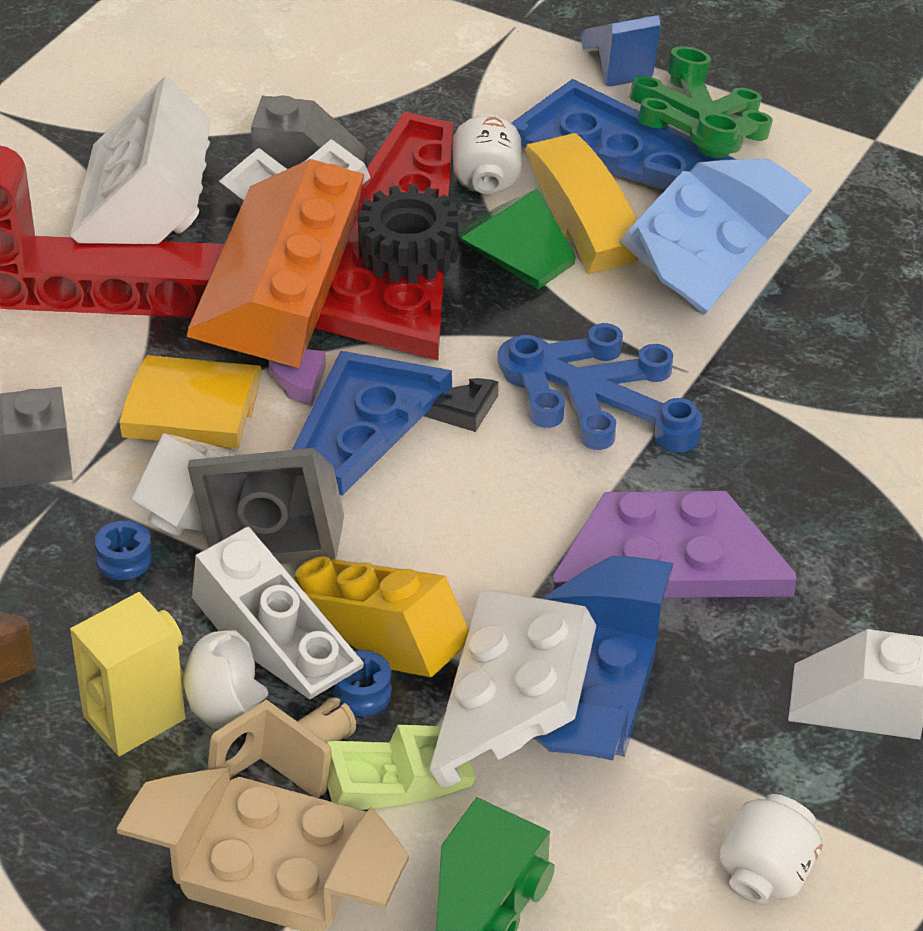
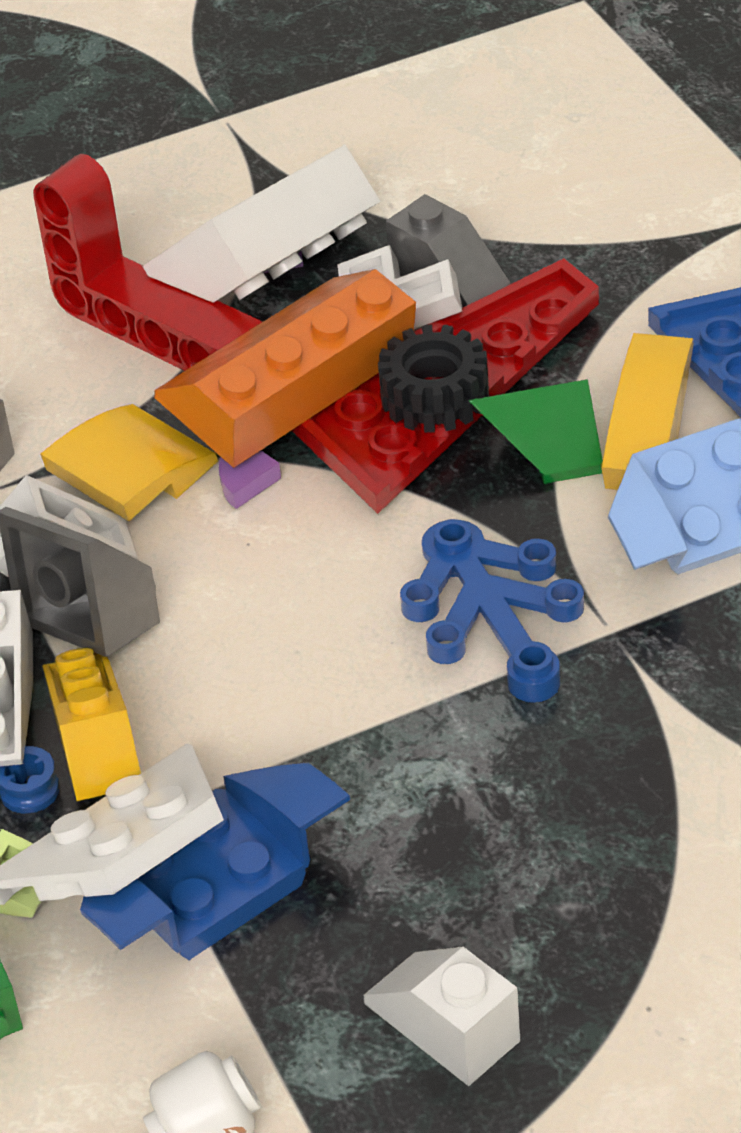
camera: 40 degrees right, 0 degrees up
(367, 410) = (249, 536): blue wing -> none
(466, 404) = (362, 566): black tile -> none
(487, 151) = (600, 329): white head -> none
(701, 532) = (417, 787): medium lavender wing -> none

